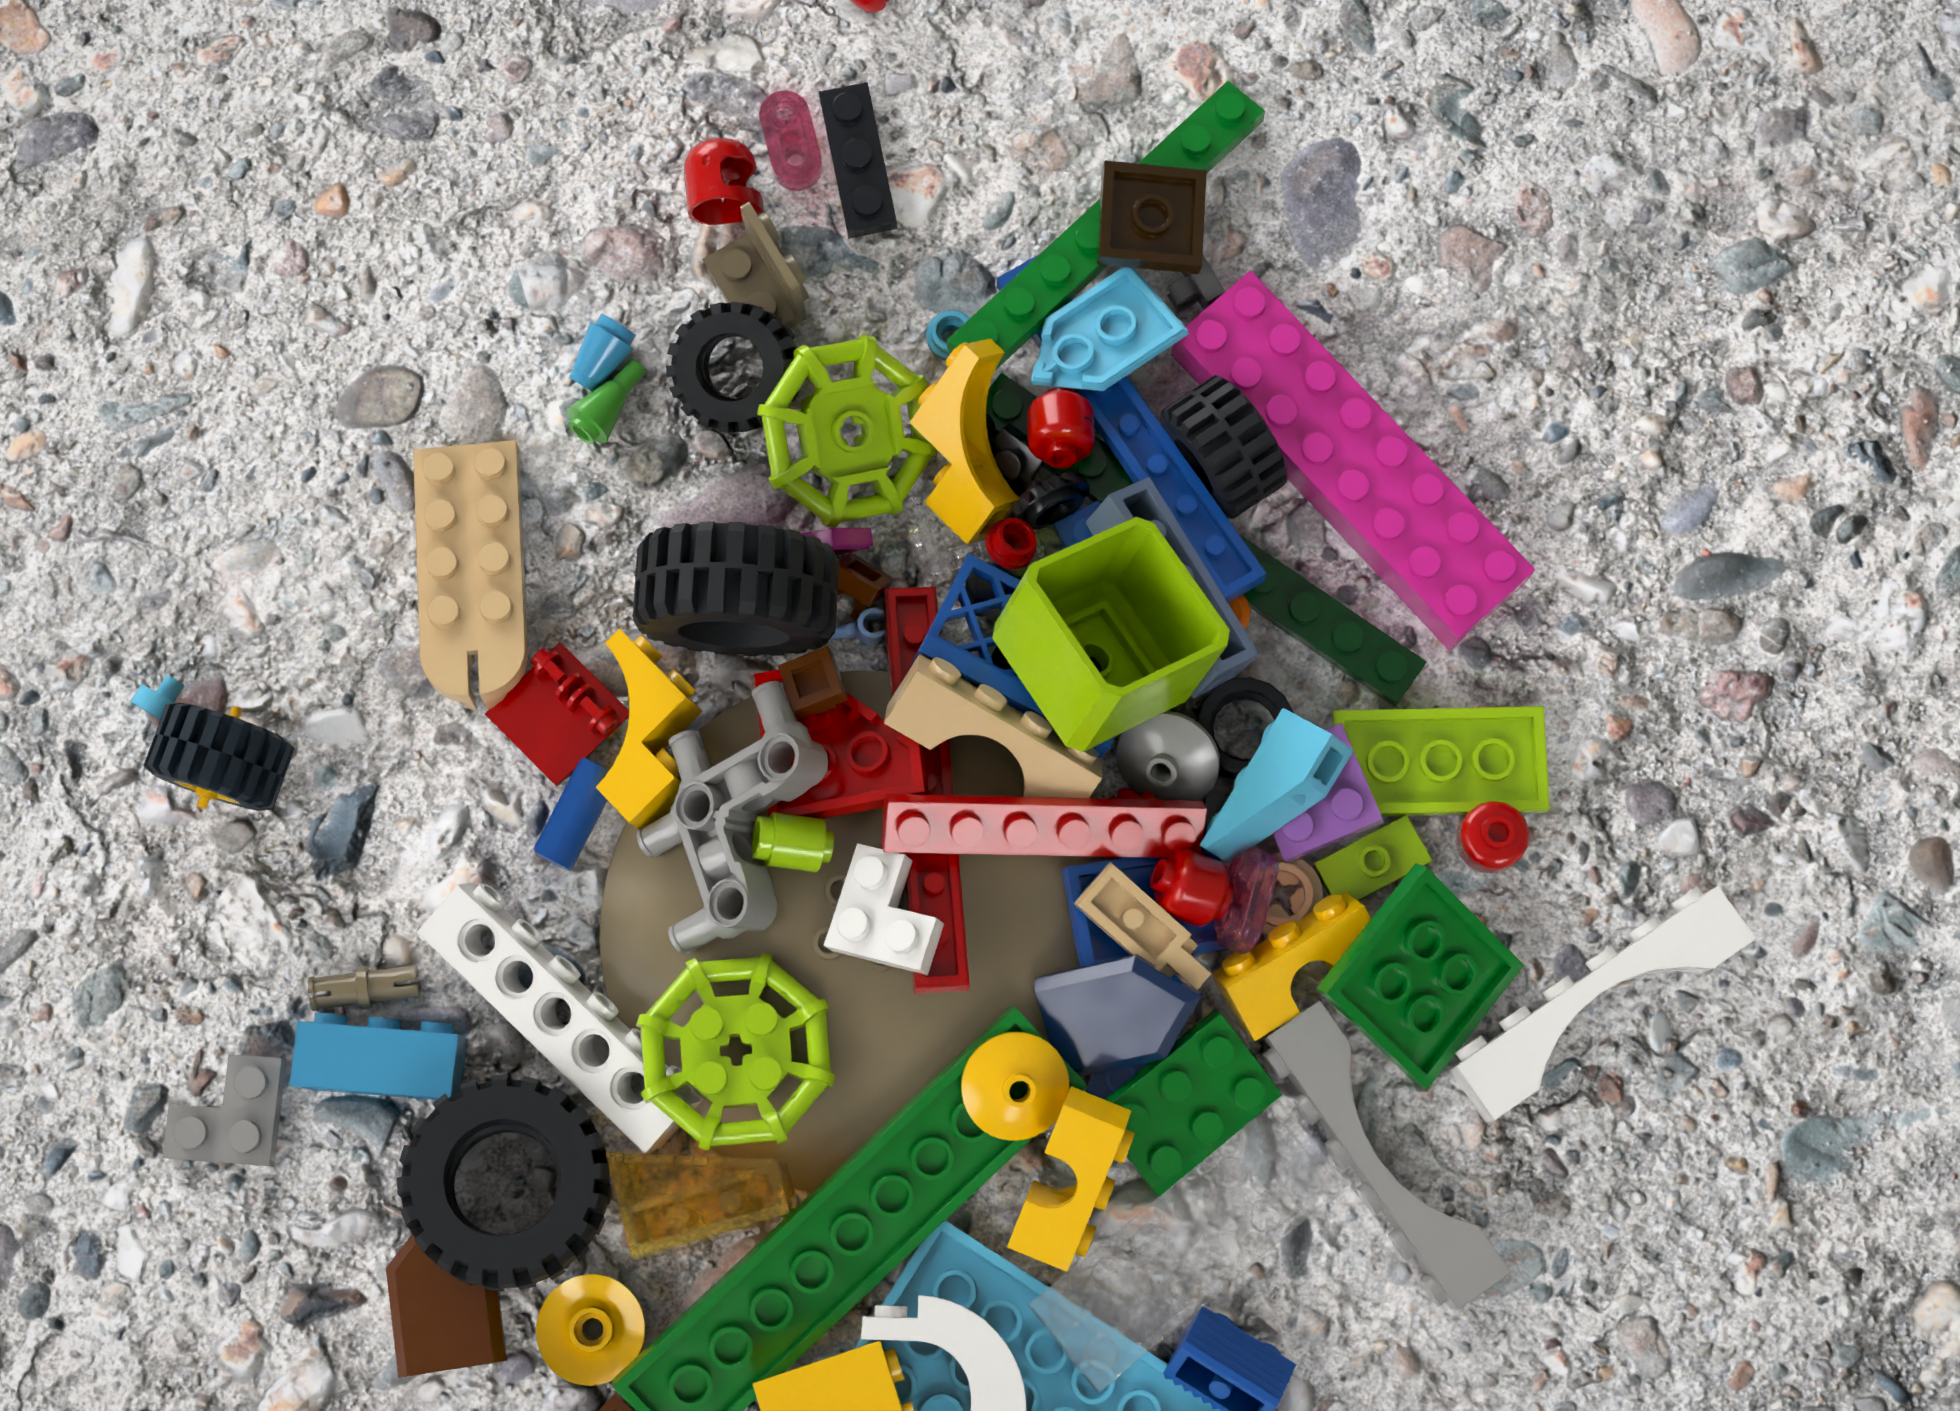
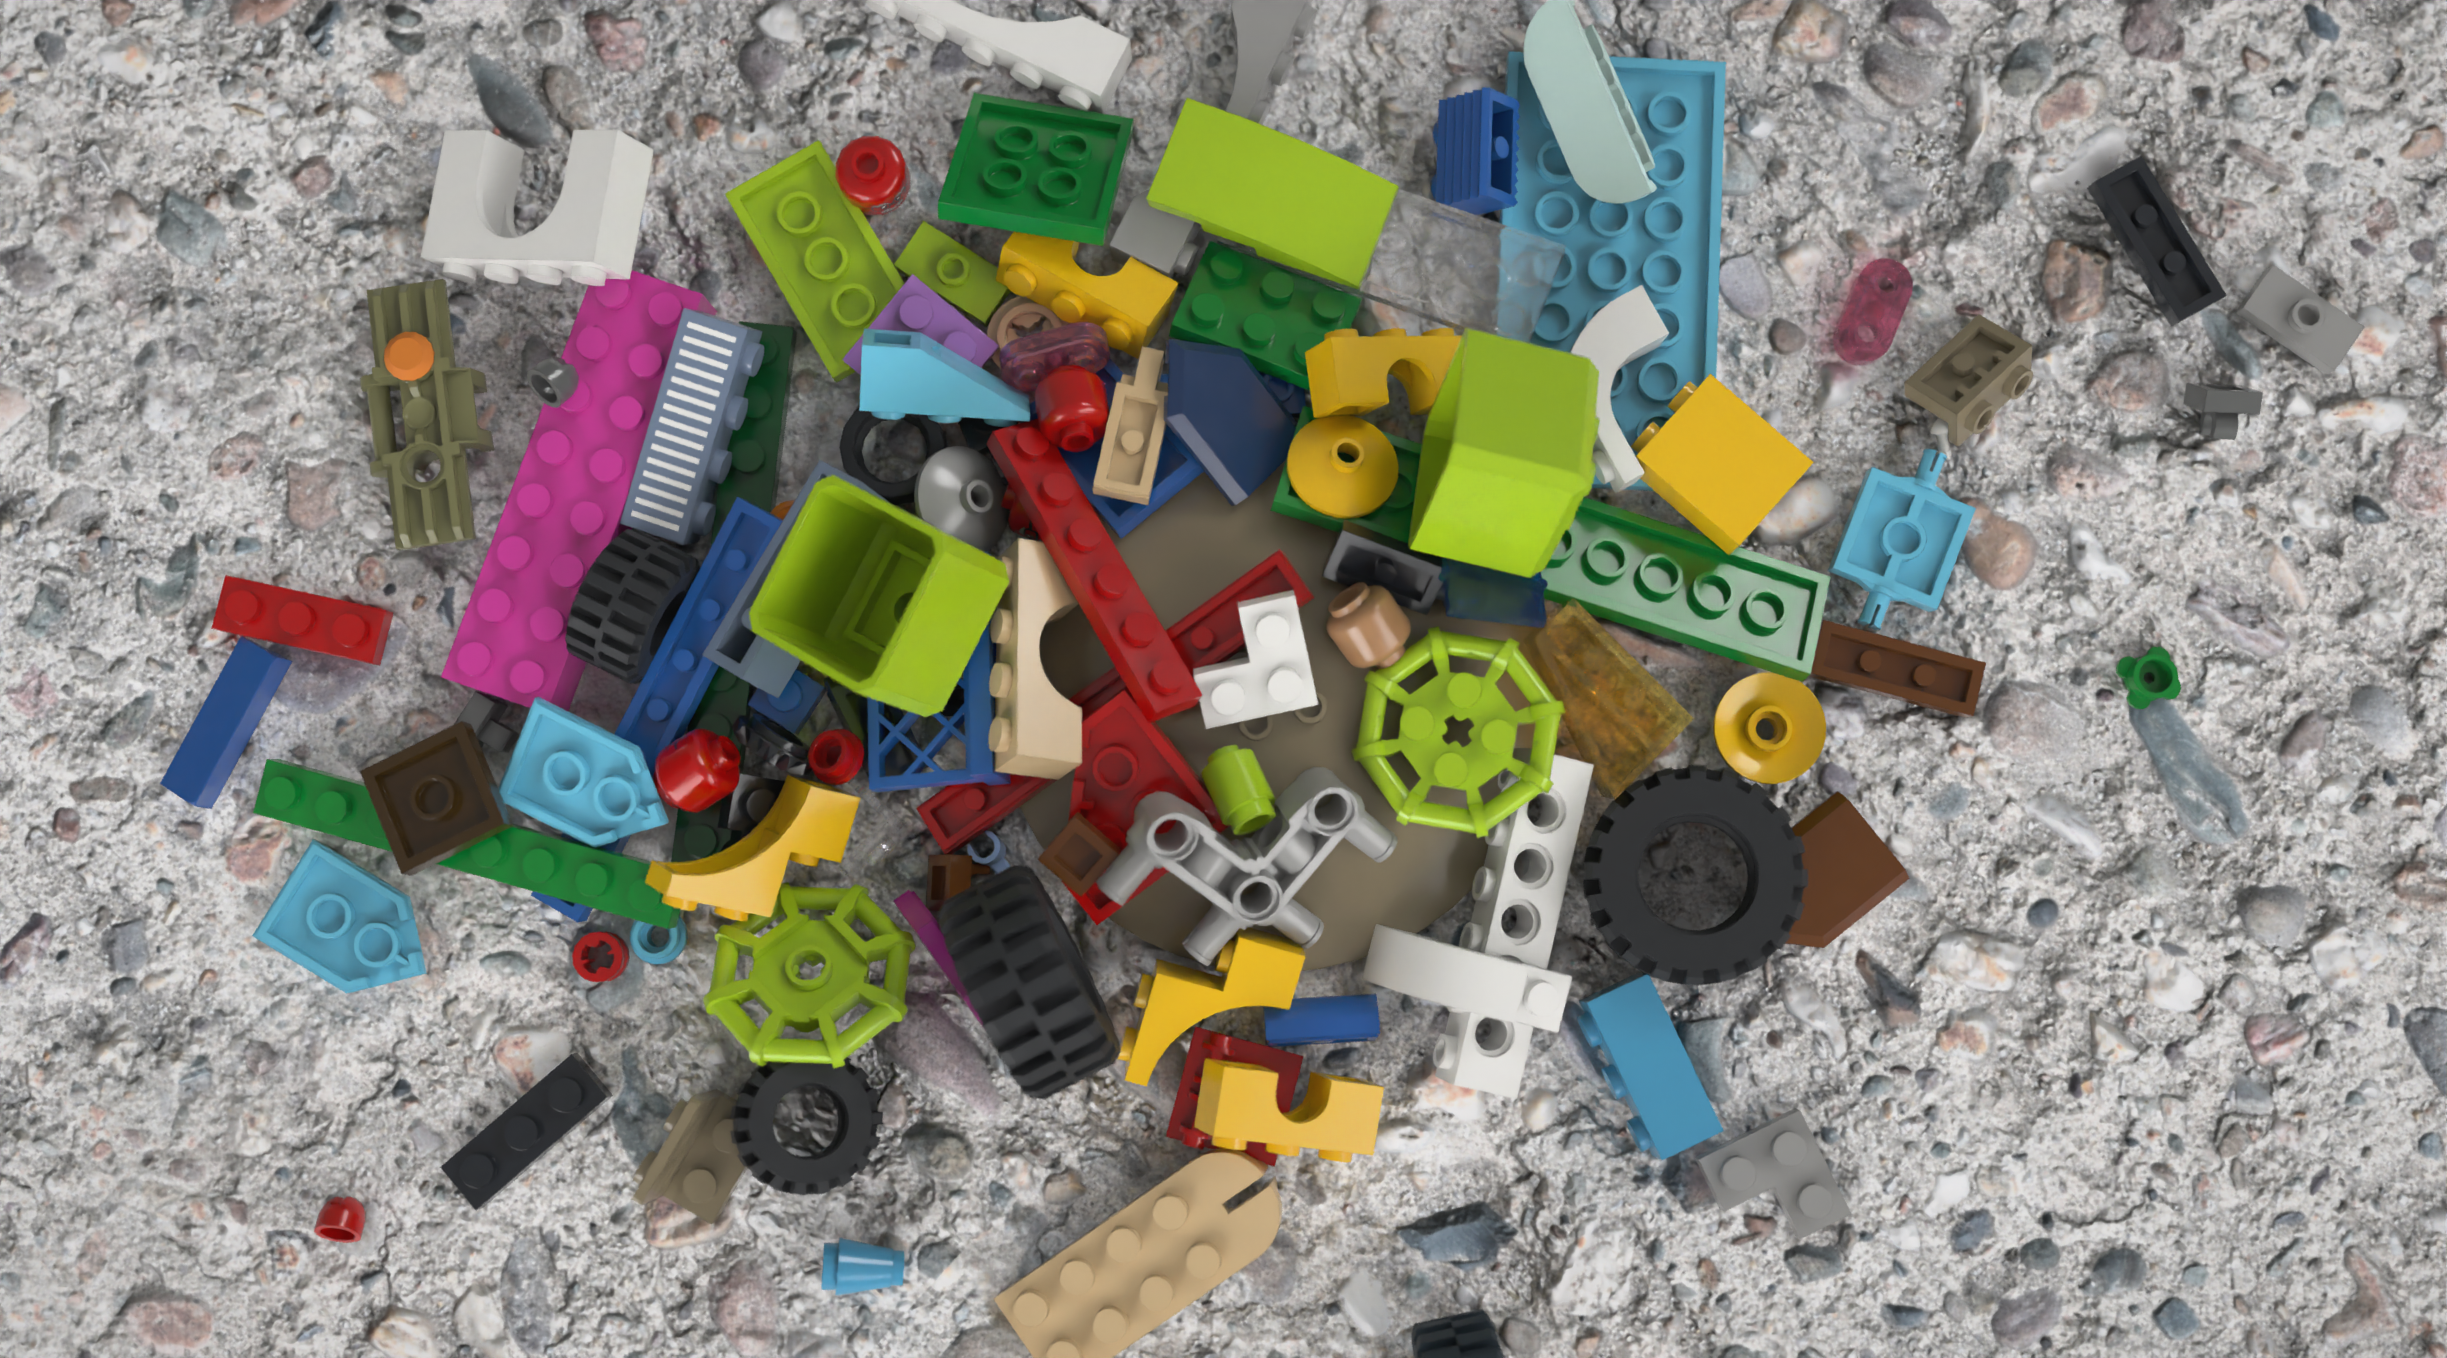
camera: 120 degrees left, 5 degrees up
(364, 987) = (1591, 1122): dark tan pin -> none
(490, 776) = (1334, 1117): none -> yellow arch
(531, 939) = (1466, 979): none -> white arch
(598, 412) = (920, 1233): bright green cone -> none
(704, 178) = (623, 1257): red helmet -> none
(789, 138) = (540, 1211): clear pink plate -> none
(842, 1150) = (1492, 594): none -> piece
(865, 1025) = (1368, 626): none -> medium nougat head
(894, 1082) = (1384, 561): none -> black plate
(937, 1217) = (1505, 454): none -> lime plate
(965, 267) = (604, 973): none -> red bush
(1101, 105) = (343, 923): none -> medium azure tile
(1286, 1163) = (1272, 193): none -> lime slope
(1314, 95) = (225, 723): none -> blue slope
(1350, 572) = (693, 427): none -> sand blue brick
(1365, 193) = (302, 620): none -> red plate
(1444, 477) = (553, 381): none -> dark grey hinge
(1475, 379) = (438, 411): none -> olive piece
(1558, 569) = (583, 238): none -> white arch

